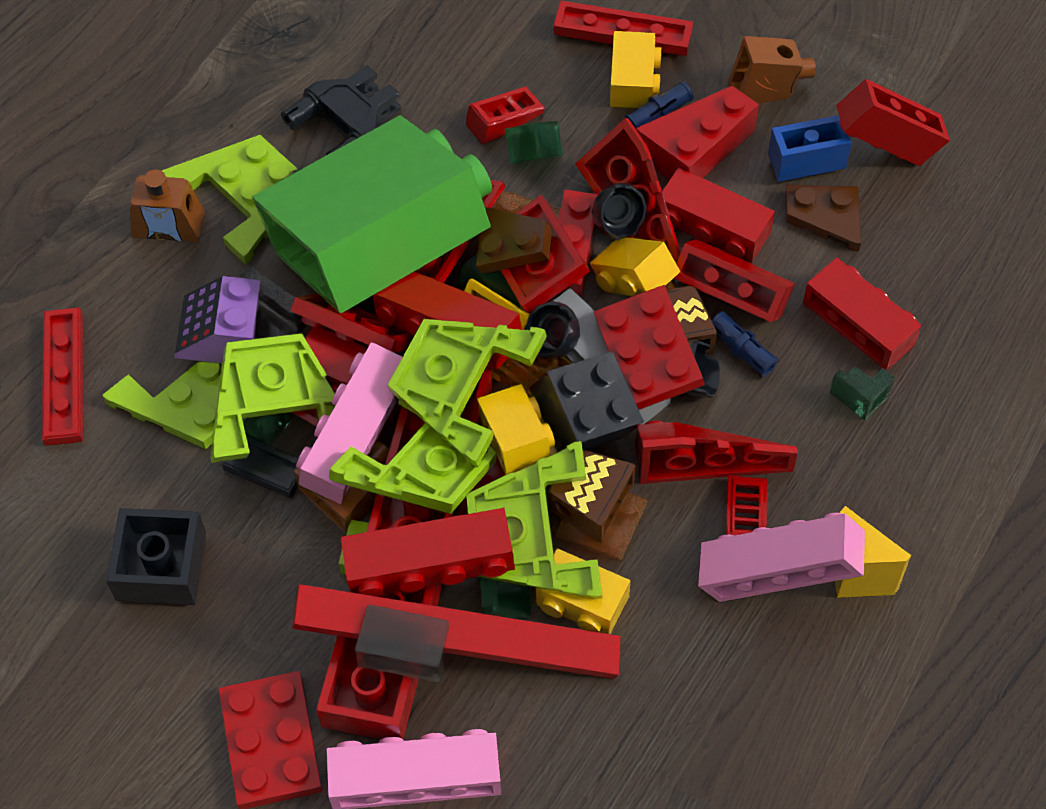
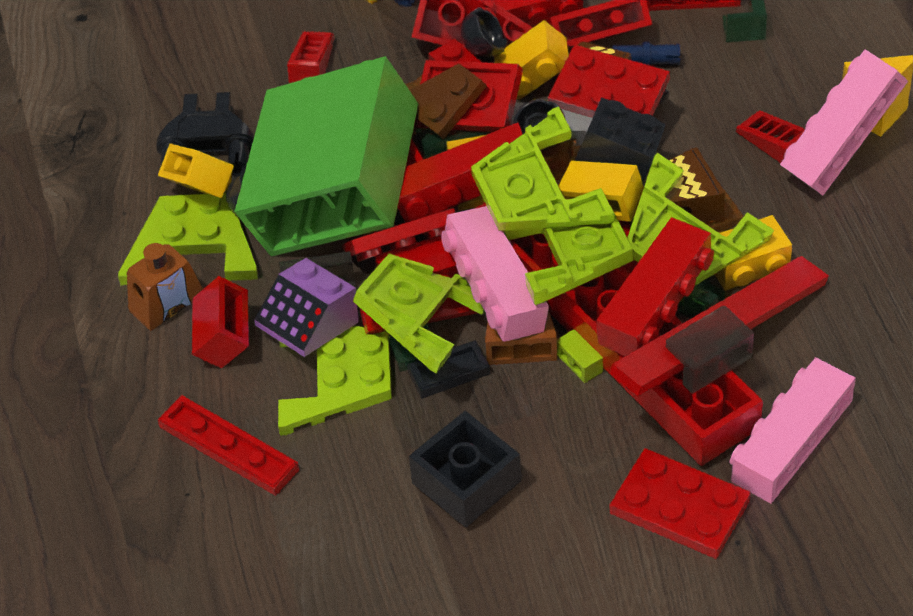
camera: 45 degrees left, 10 degrees down
(161, 275) = (220, 322): none -> red brick
(287, 138) = (196, 170): none -> yellow brick
(533, 141) = (357, 50): clear green panel -> none
(692, 453) = (713, 120): red wedge -> none

